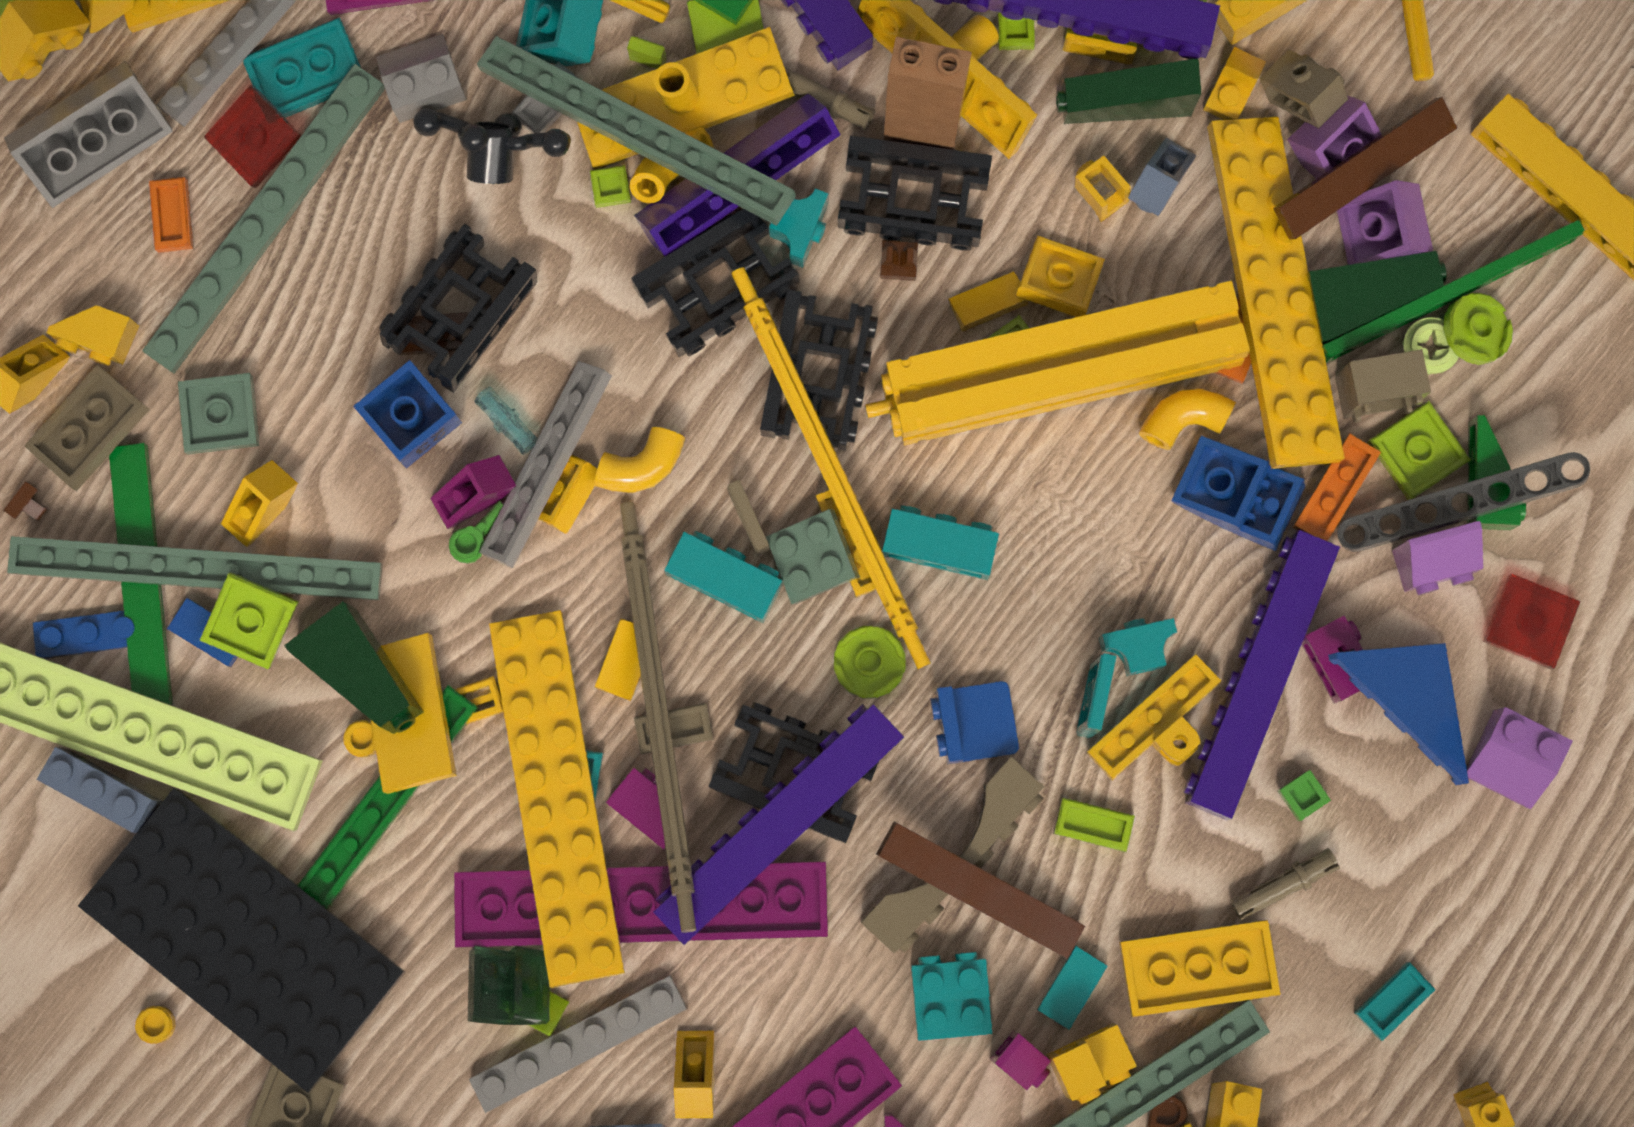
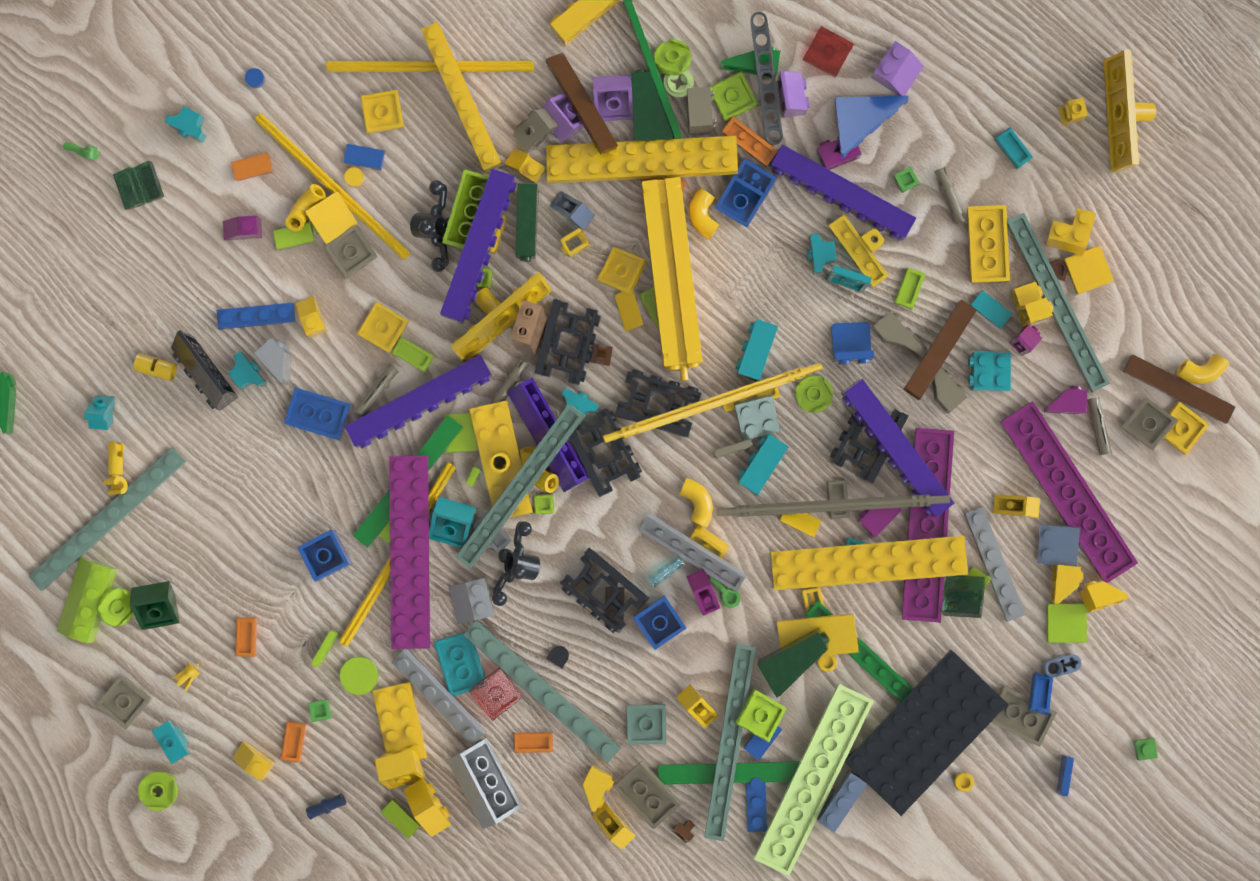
camera: 85 degrees left, 5 degrees up
(332, 243) = (559, 656): none -> black tile

